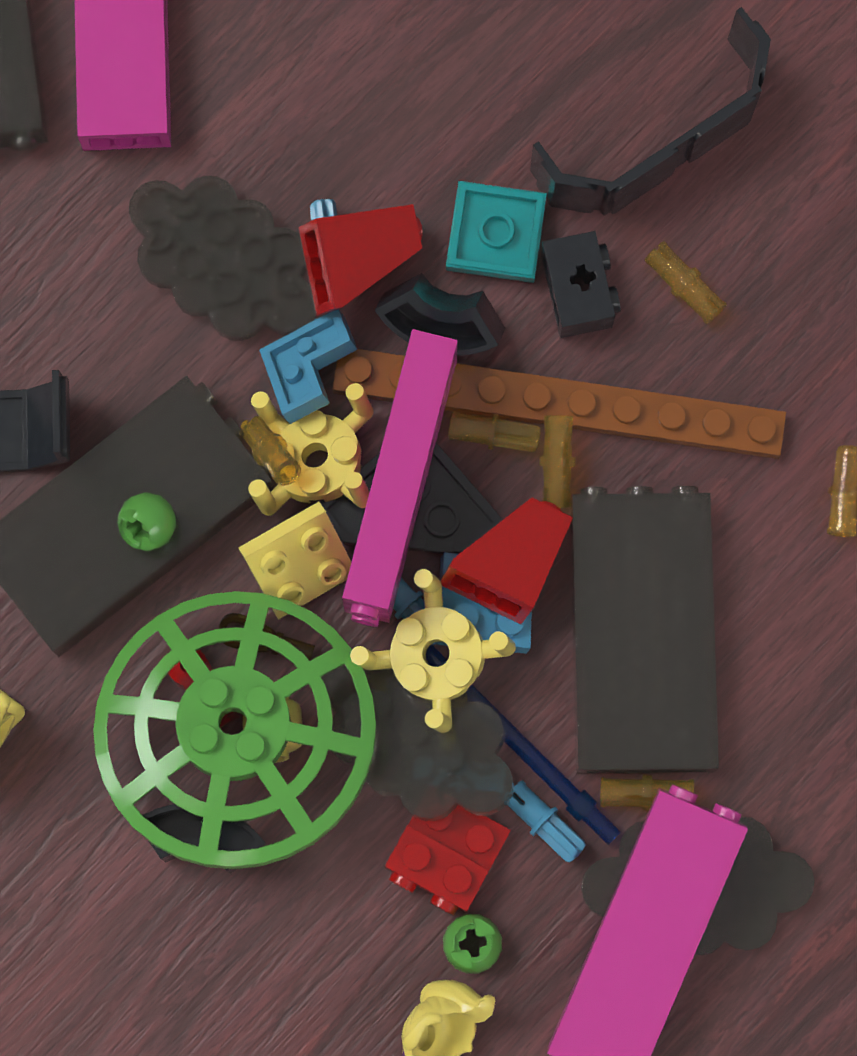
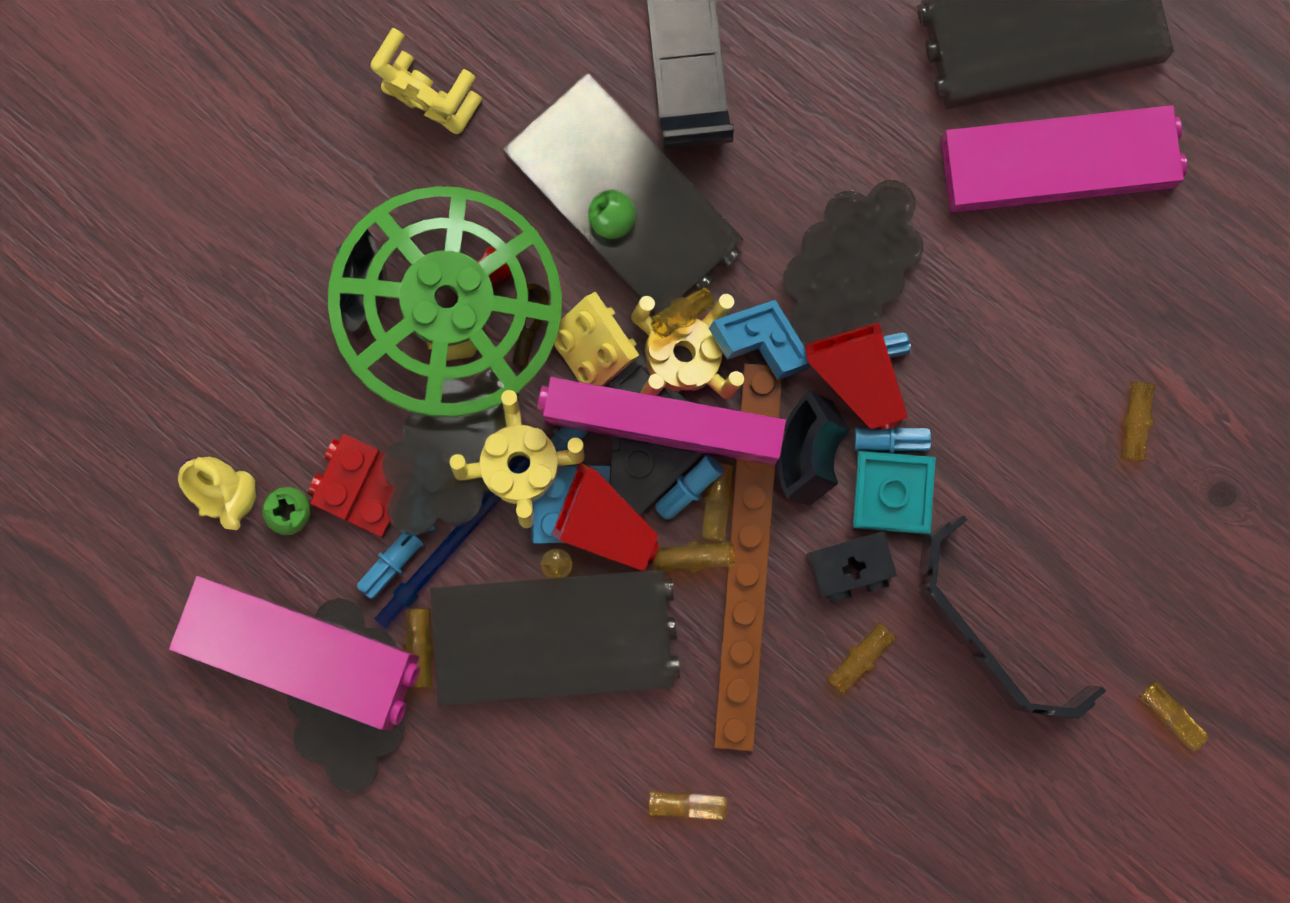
camera: 85 degrees right, 5 degrees up
(435, 230) = (892, 439): none -> dark azure axle
(476, 461) = (689, 487): none -> dark azure axle
(558, 619) = (556, 563): none -> clear yellow axle

